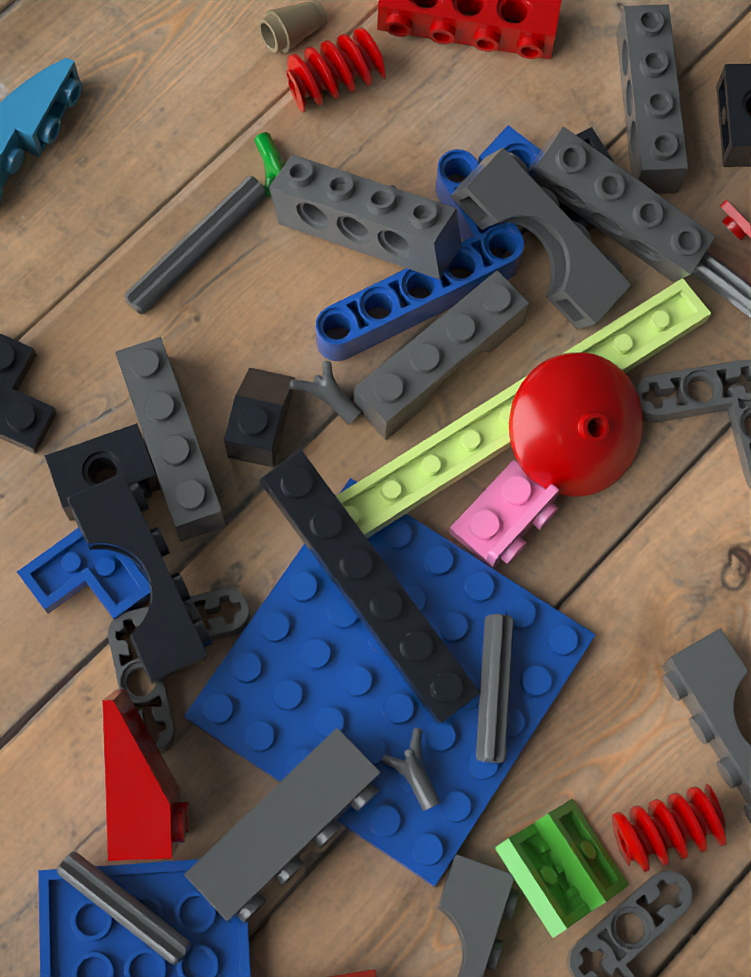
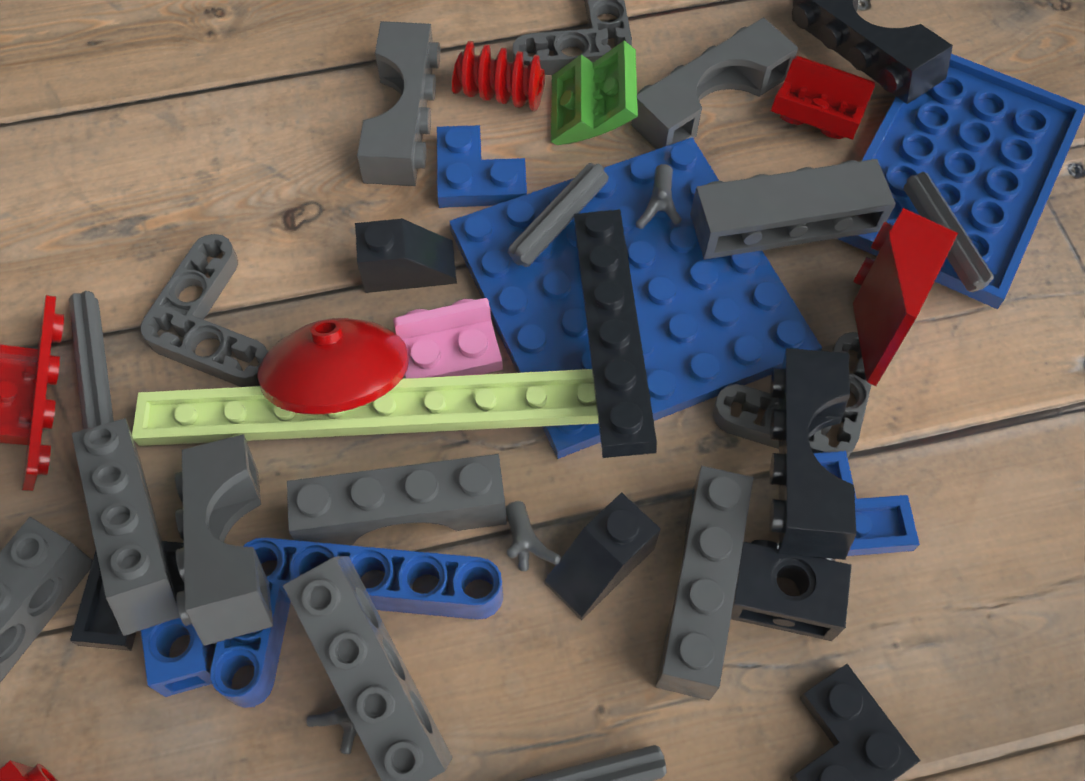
camera: 145 degrees left, 10 degrees down
(604, 569) = (402, 256): none -> black slope
(621, 699) = (468, 179): none -> blue plate

